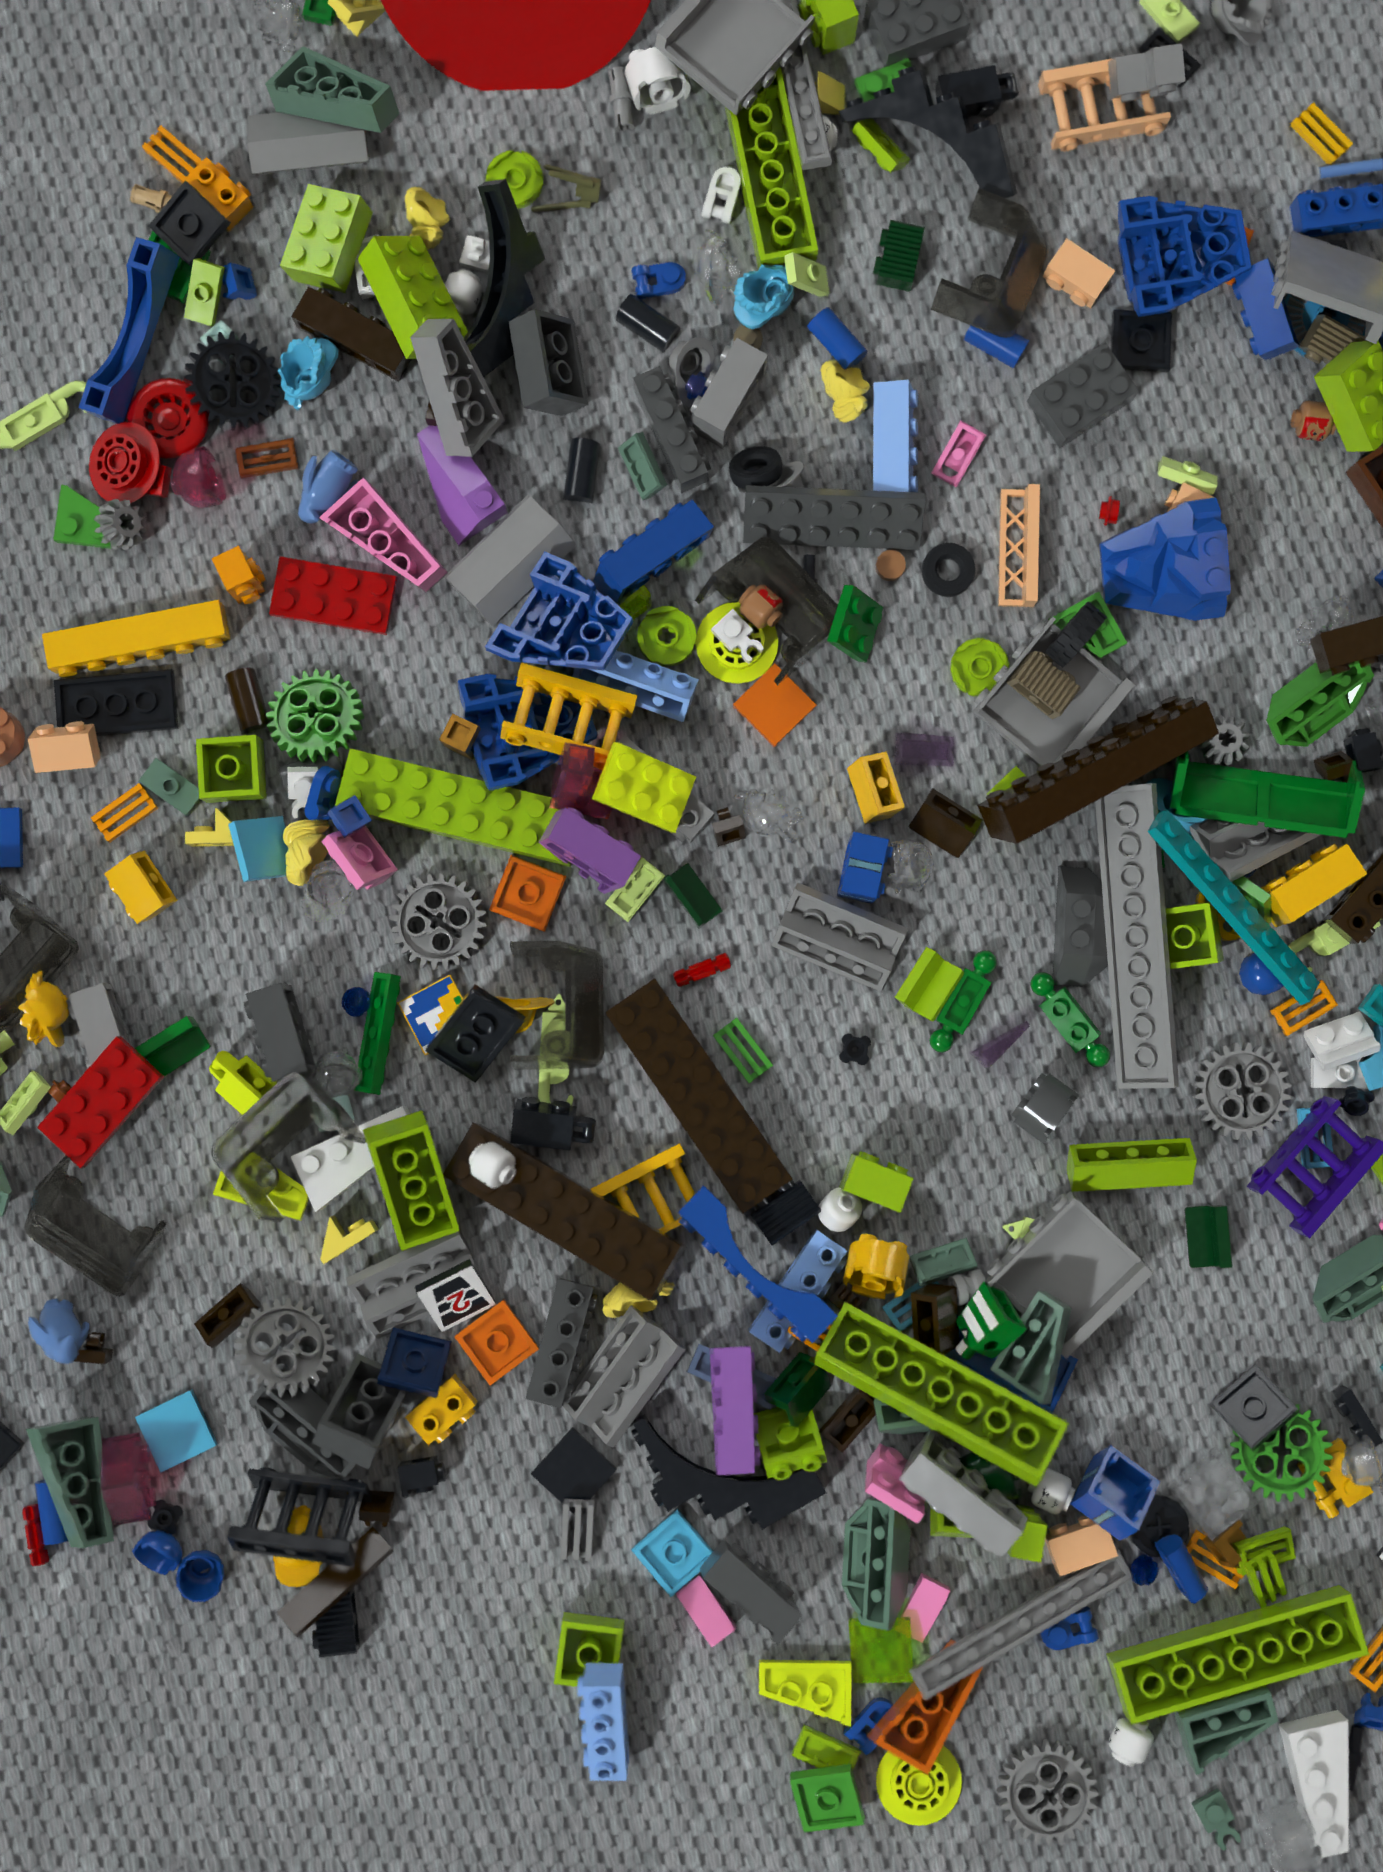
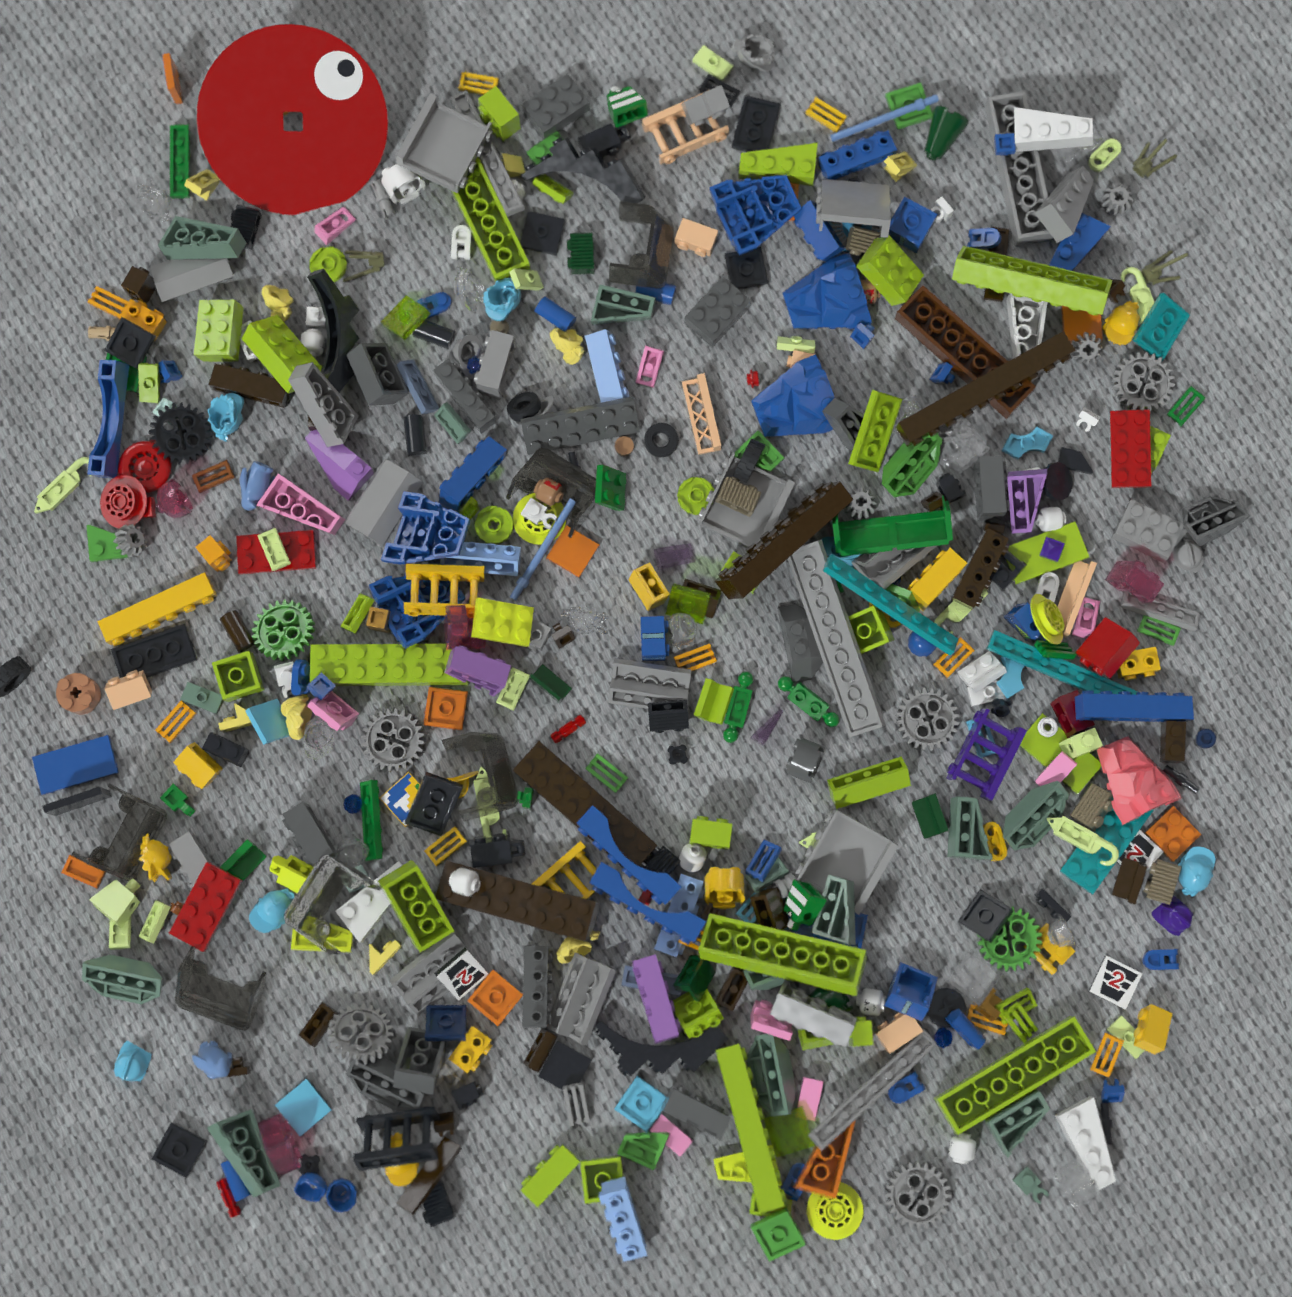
camera: 10 degrees left, 5 degrees down
(97, 928) = (176, 798): none -> green plate
(187, 873) = (225, 749): none -> black brick
(196, 1130) = (270, 910): none -> medium azure hair
(223, 137) = (139, 284): none -> dark brown brick
(330, 591) = (274, 549): none -> yellowish green plate
(409, 84) = (247, 222): none -> black brick
(431, 718) = (357, 613): none -> lime tile
(500, 1088) = (451, 851): none -> yellow tile
(512, 1623) = (549, 1174): none -> lime brick
(537, 121) = (333, 225): none -> bright pink slope
(543, 1436) = (540, 1050): none -> dark brown brick
(603, 398) = (417, 386): none -> sand blue plate
(611, 288) = (405, 317): none -> clear neon green plate
(614, 1057) = (525, 797): none -> green plate
(661, 1619) = (643, 1147): none -> bright green wing
(689, 732) = (523, 581): none -> medium blue bar
(756, 1249) = (645, 897): none -> red plate
(782, 1241) = (659, 884): none -> blue arch
(825, 1639) = (749, 1128): none -> lime brick
(847, 210) = (542, 233): none -> black plate
(856, 989) = (668, 716): none -> black brick
(927, 1259) = (755, 874): none -> blue tile
(929, 825) = (688, 601): none -> clear neon green plate
(940, 351) = (619, 305): none -> sand green wedge
(942, 910) = (710, 653): none -> light orange tile
(1023, 44) = (625, 105): none -> green torso
(1210, 125) = (755, 124): none -> black tile
(1243, 620) = (844, 421): none -> dark grey wedge
(1256, 415) = (828, 297): none -> blue wedge
(1258, 192) = (793, 161): none -> lime wedge
(1258, 1273) = (966, 830): none -> sand green wedge
(1277, 636) = (875, 431): none -> lime tile
(1292, 485) = (863, 334): none -> blue tile
(1294, 1298) = (995, 841): none -> yellow plate

